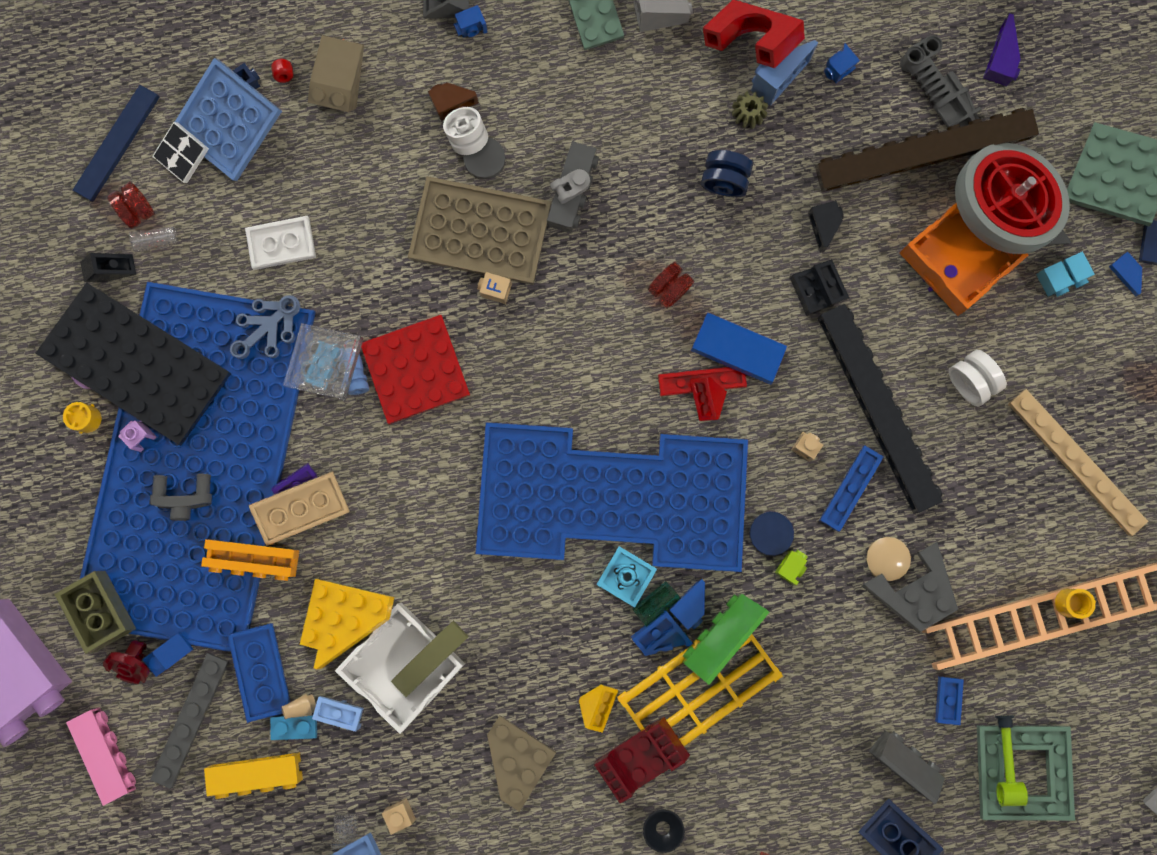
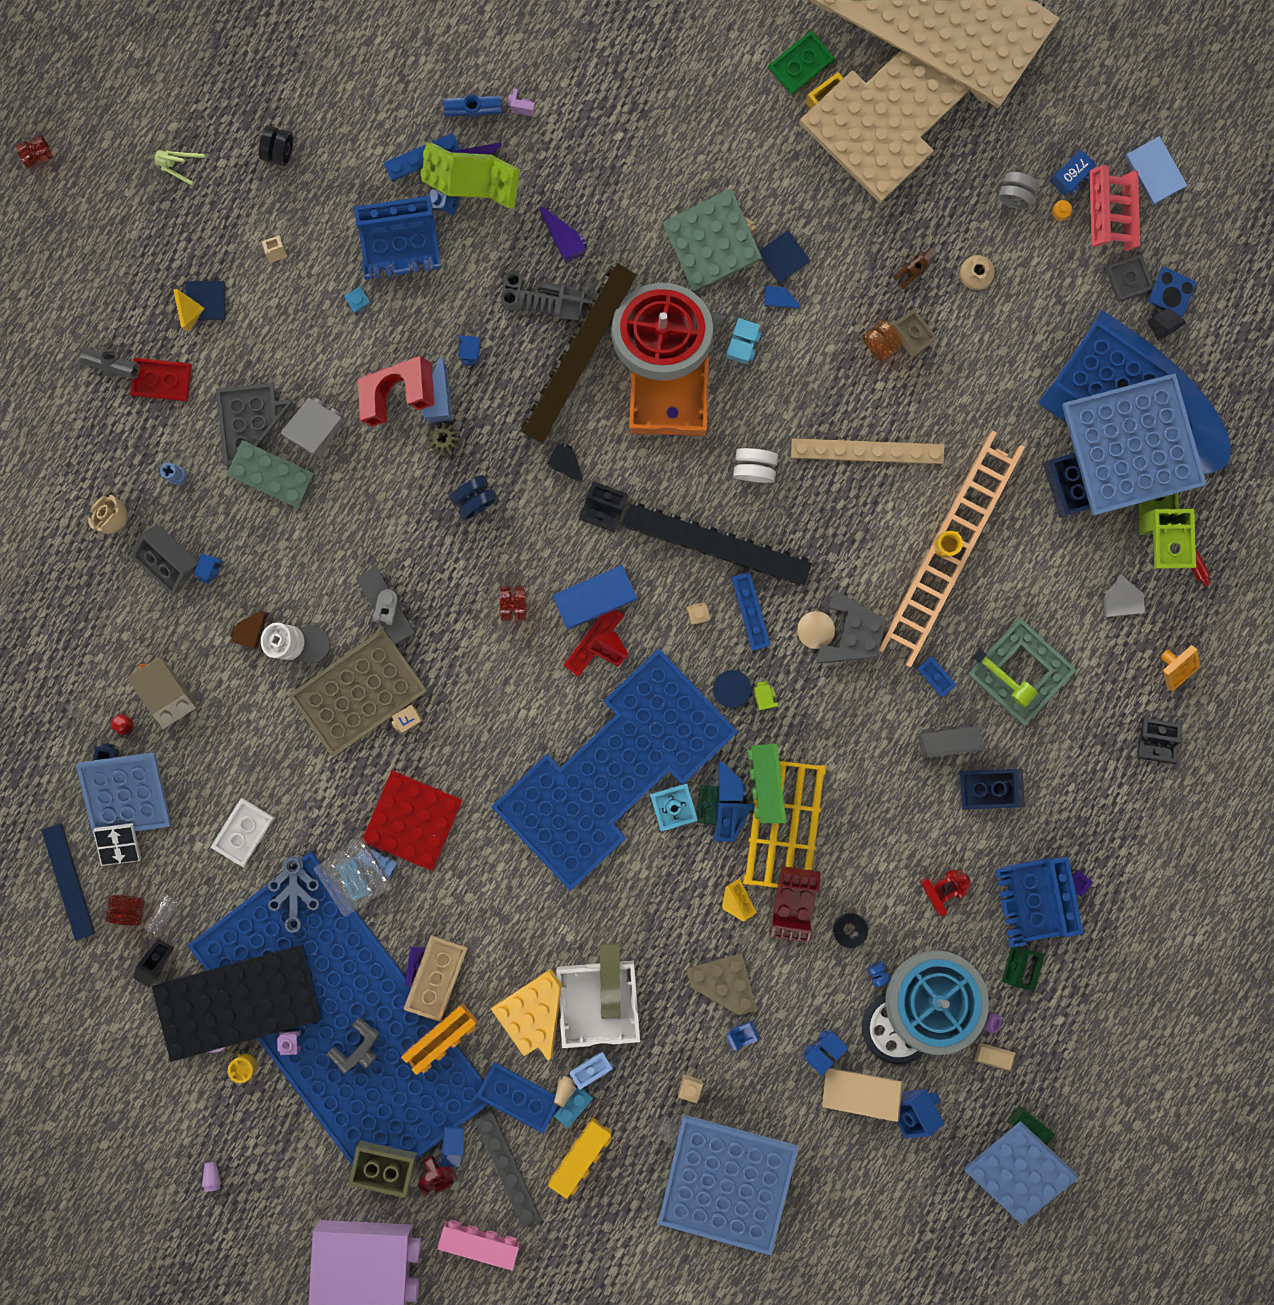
camera: 60 degrees left, 5 degrees up
(486, 820) = (742, 1035): none -> blue bracket

